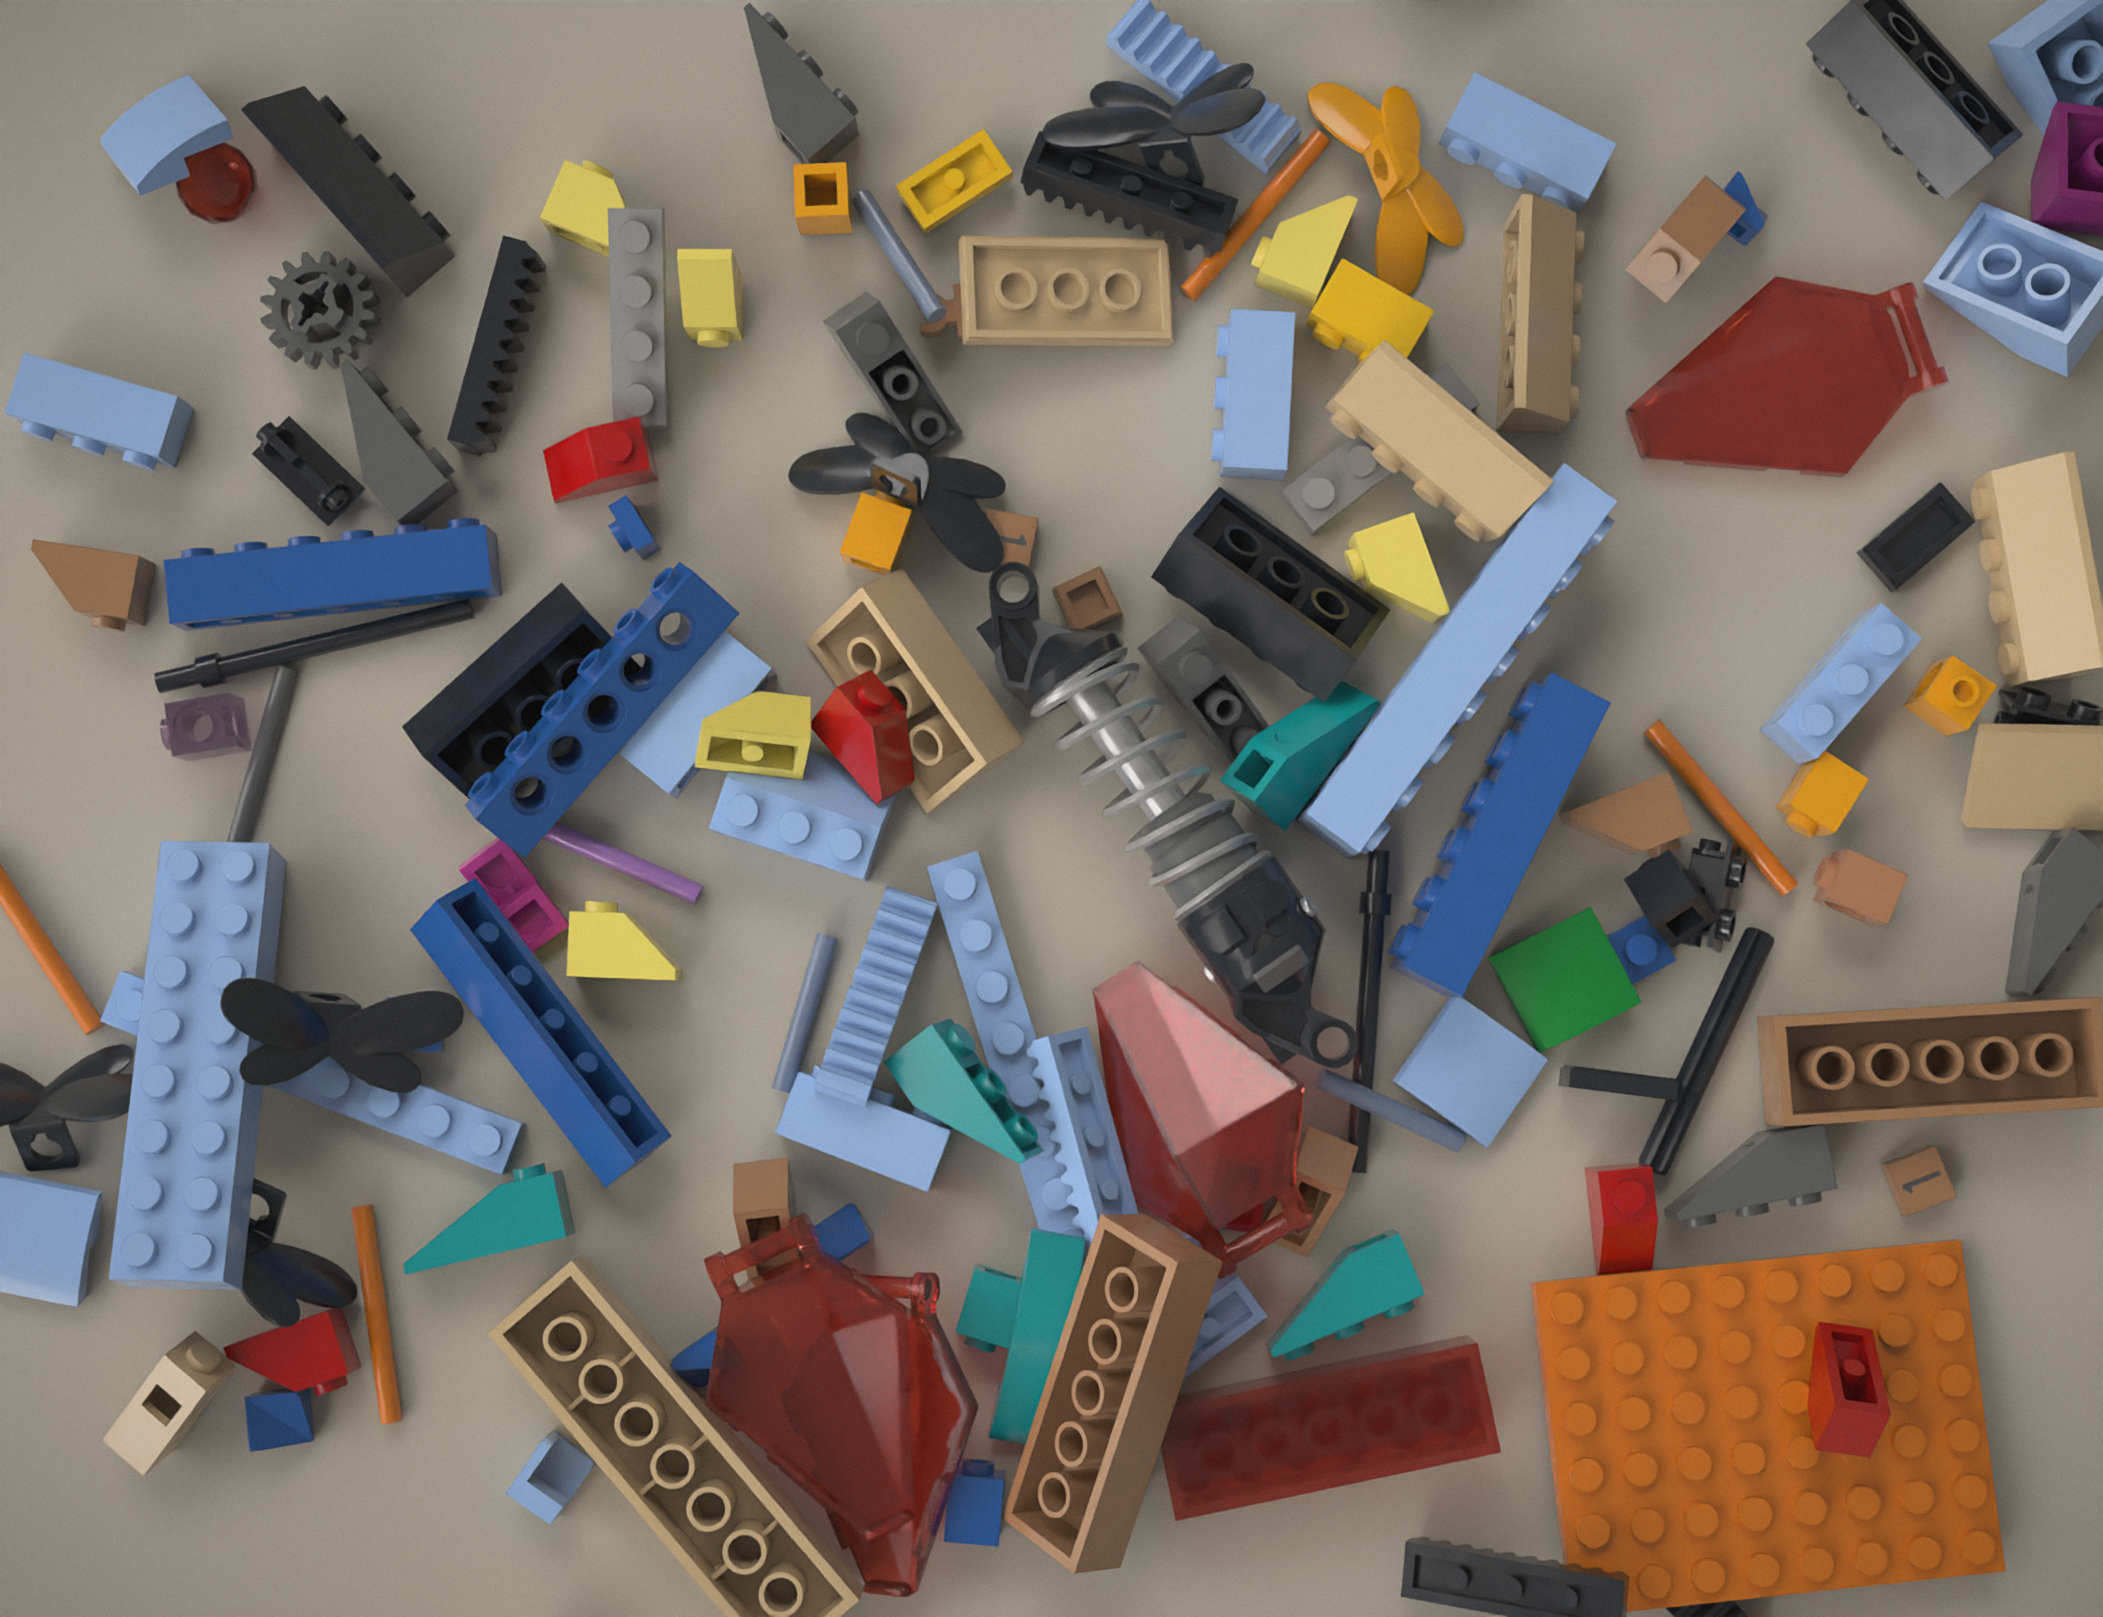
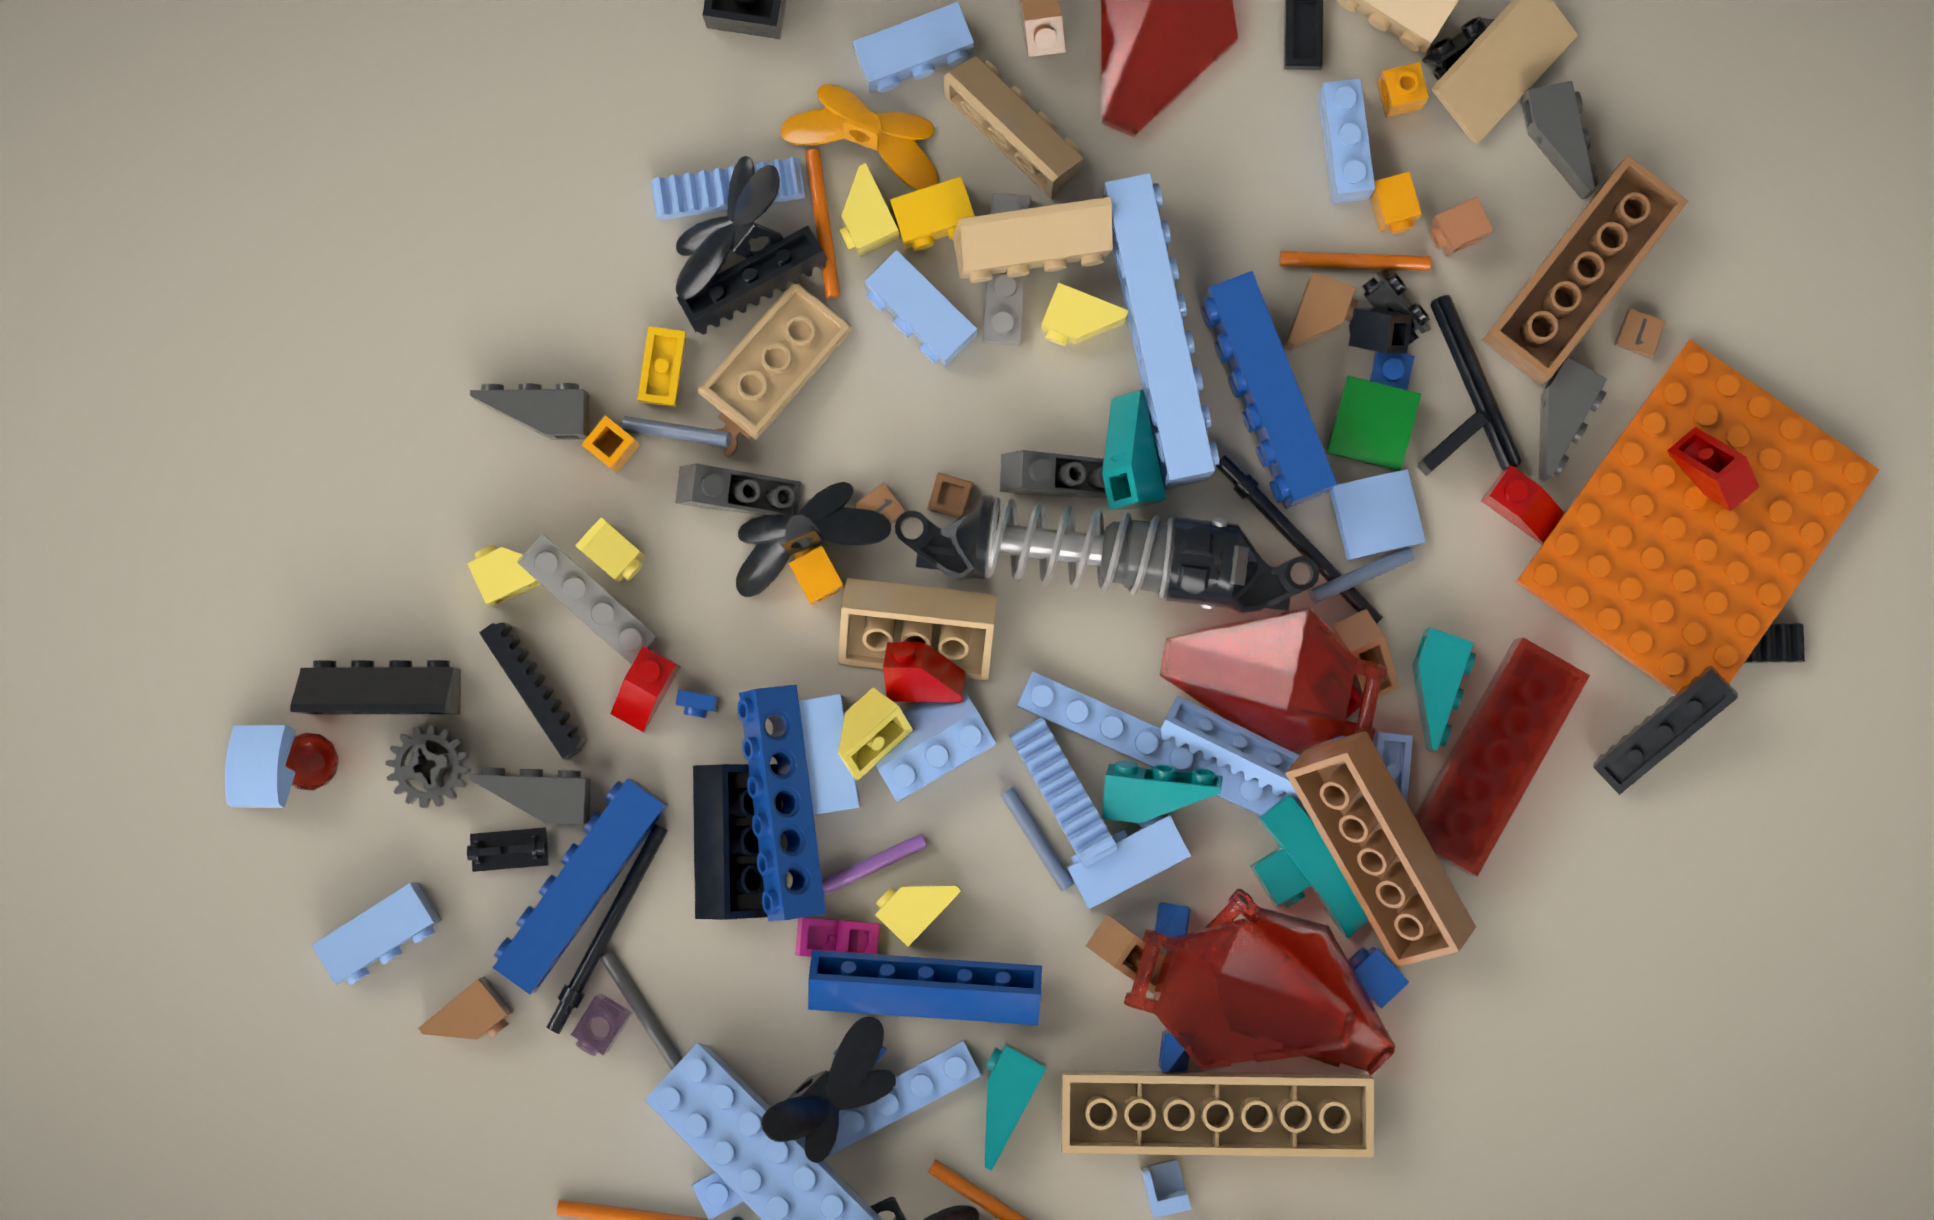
camera: 40 degrees left, 0 degrees up
(1270, 594) = (1034, 395): black slope -> none

